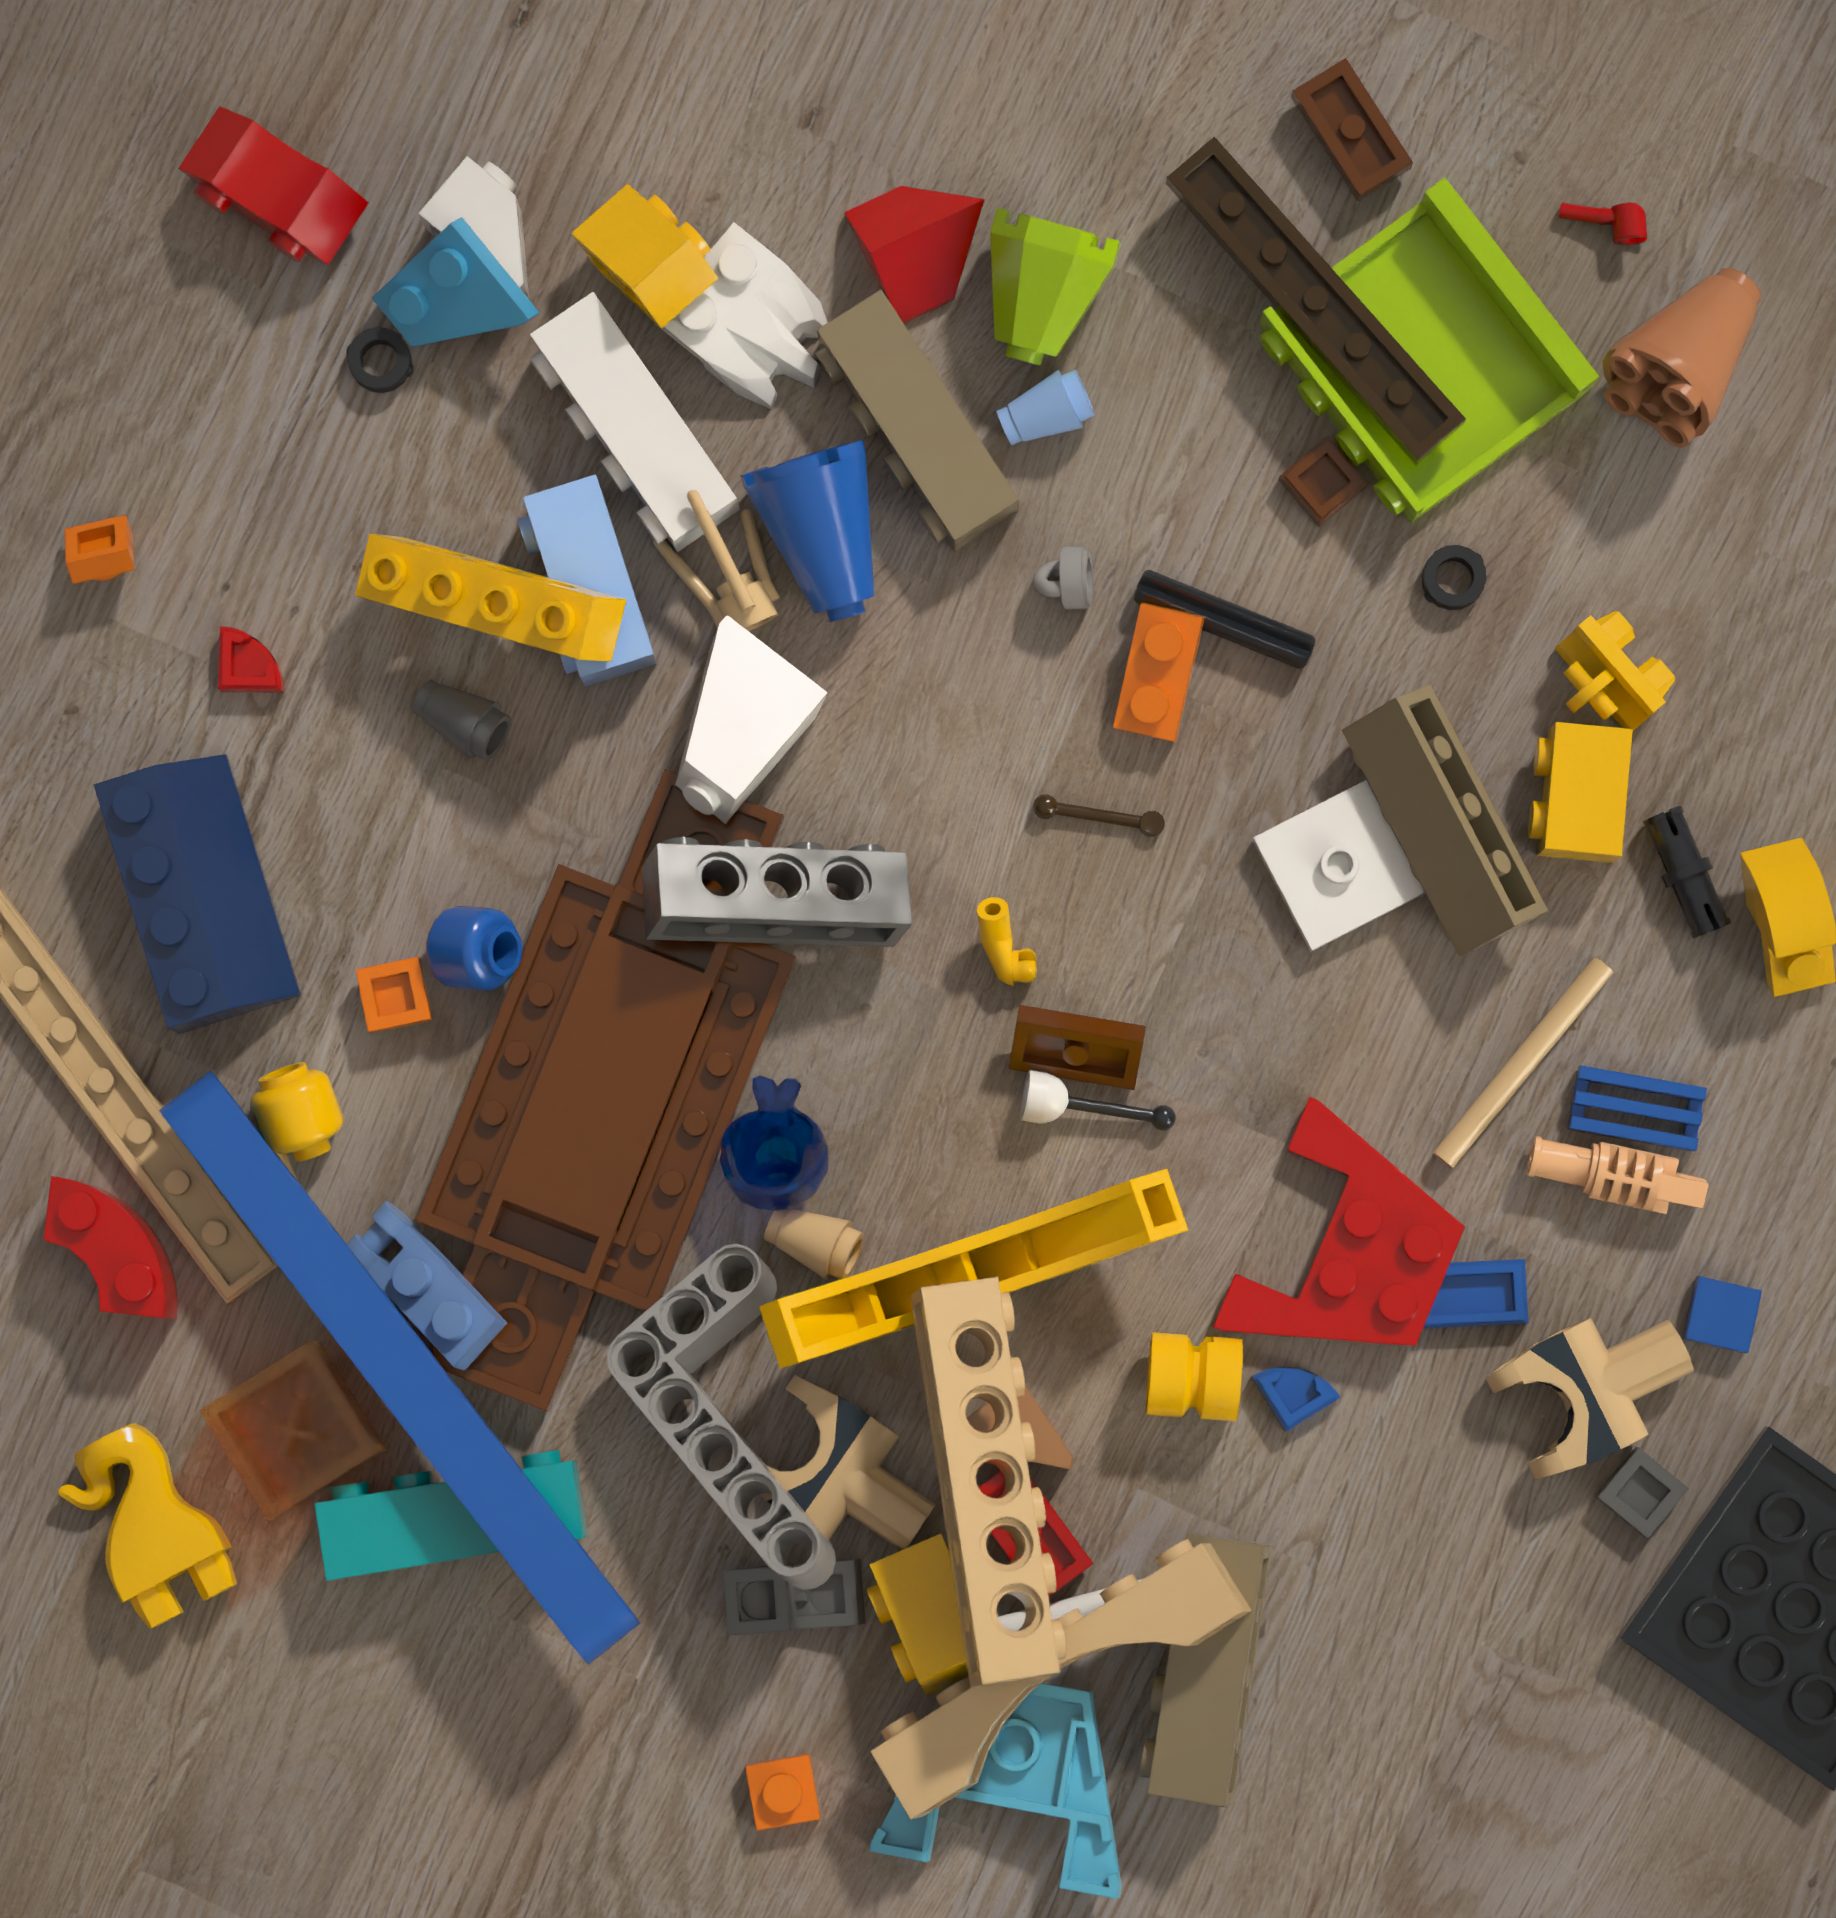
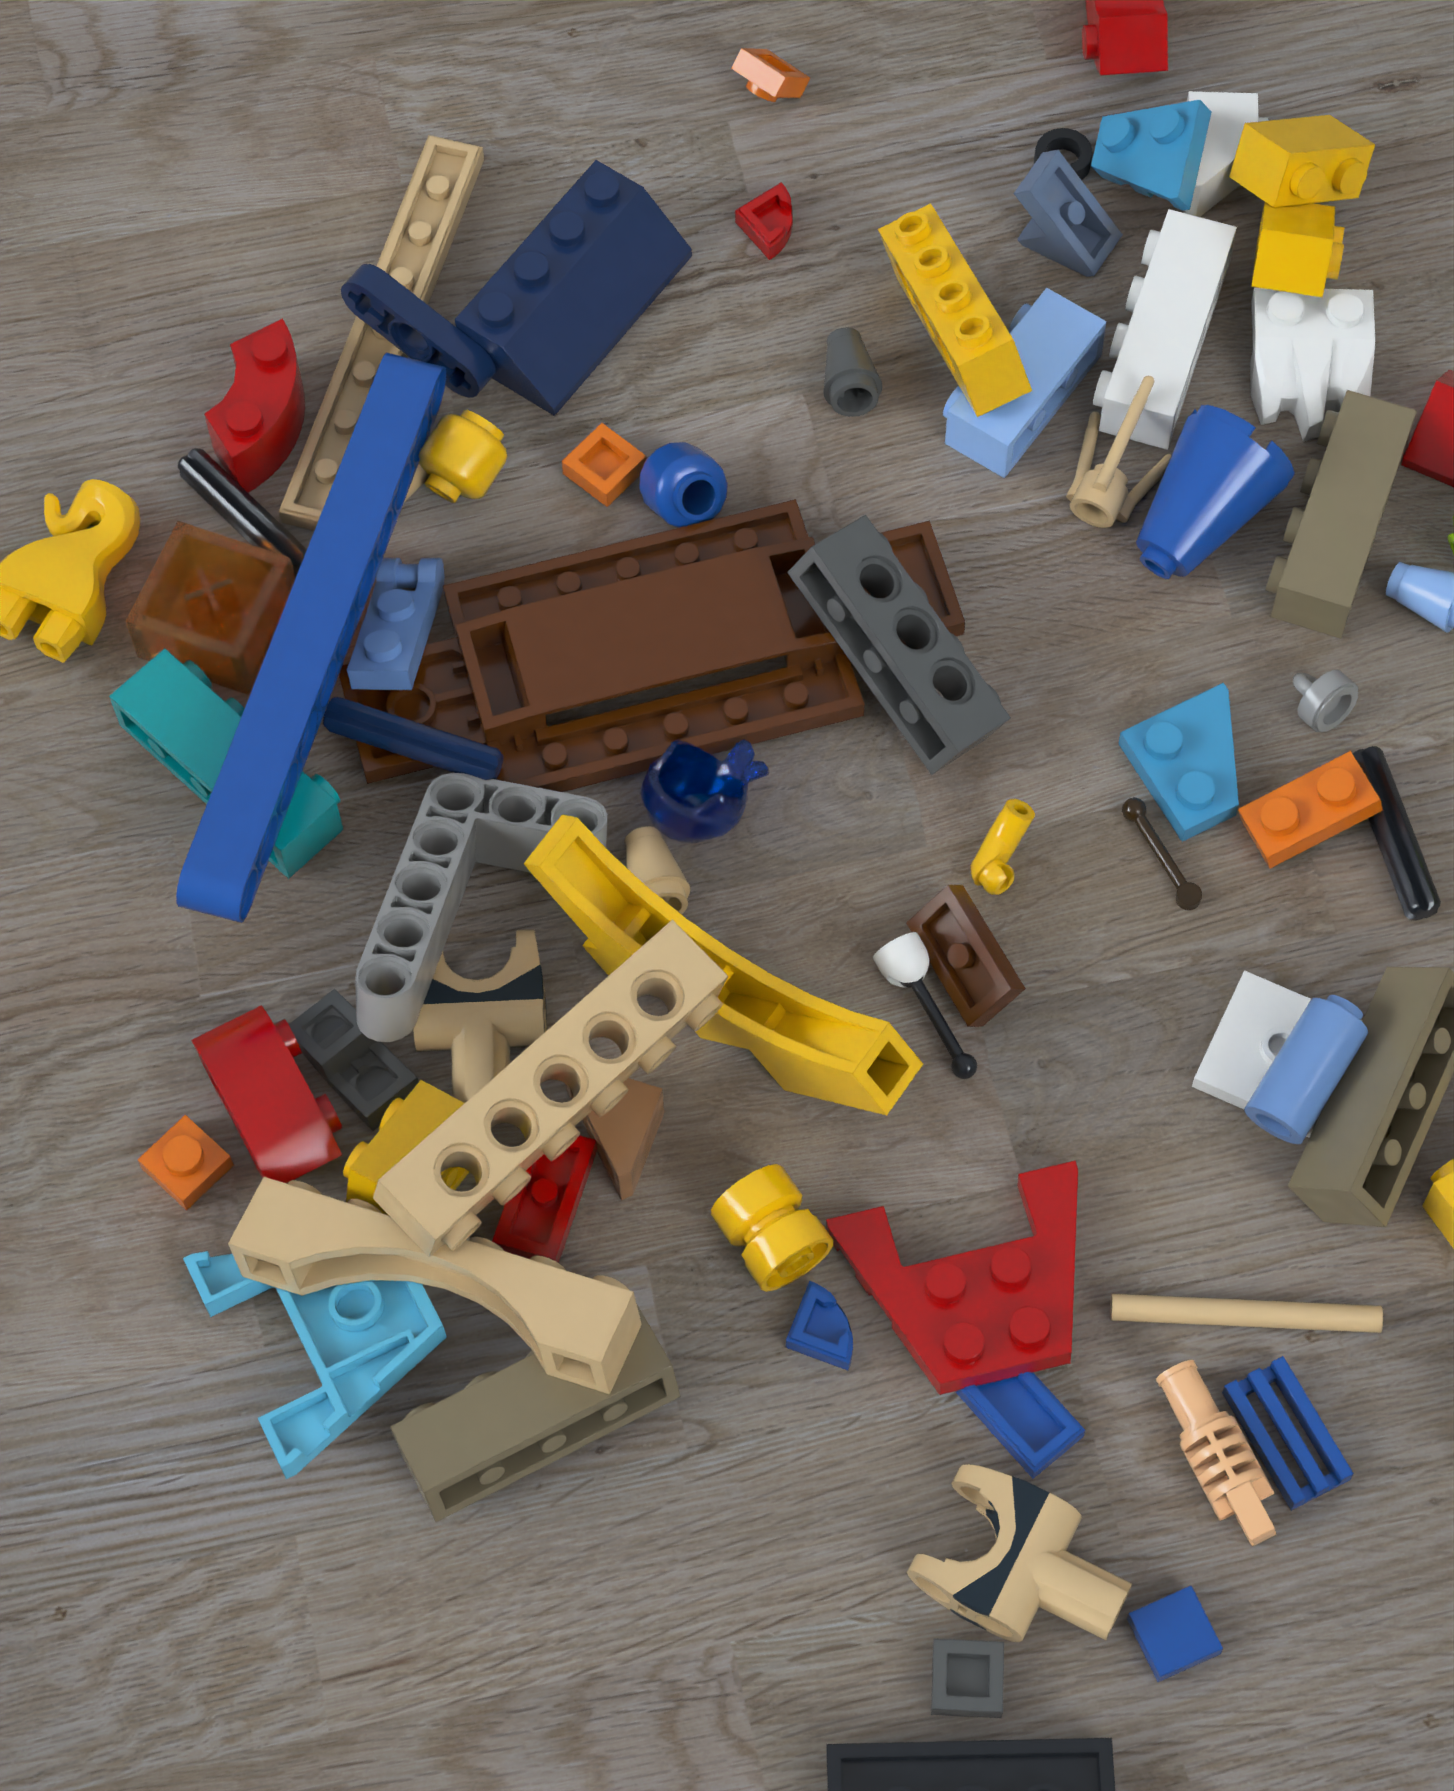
camera: 50 degrees right, 20 degrees down
(143, 1061) = (417, 329): none -> dark blue beam
(204, 1333) = (239, 507): none -> black axle
(455, 416) = (1065, 217): none -> sand blue slope
(554, 1354) = (412, 739): none -> dark blue axle
(566, 177) = (1301, 160): none -> yellow brick
(742, 721) = (1009, 542): white slope -> none
(786, 1693) = (268, 1096): none -> red brick
(1037, 728) = (1188, 761): none -> dark azure wing
(1382, 865) = (1307, 1068): none -> medium blue brick

